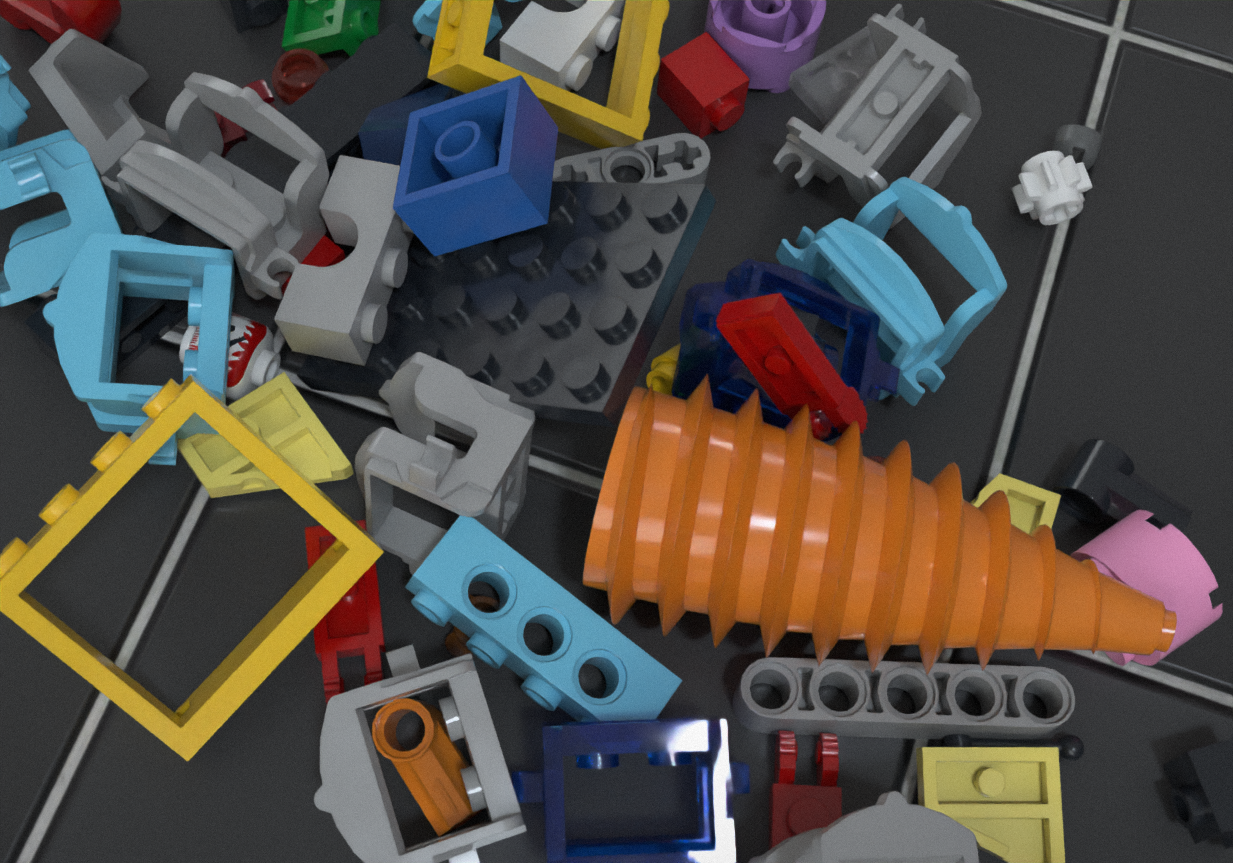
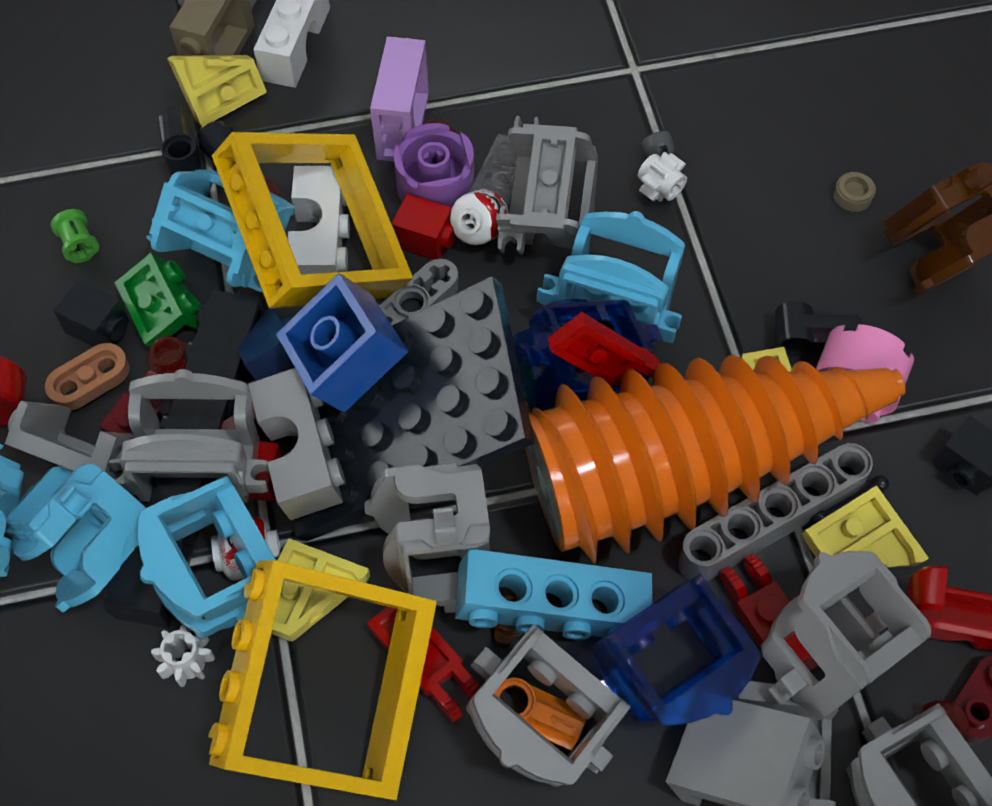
camera: 25 degrees left, 5 degrees down
(59, 440) = (173, 647): none -> white gear
(195, 48) = (87, 376): none -> nougat plate
(771, 101) = (475, 216): none -> white head

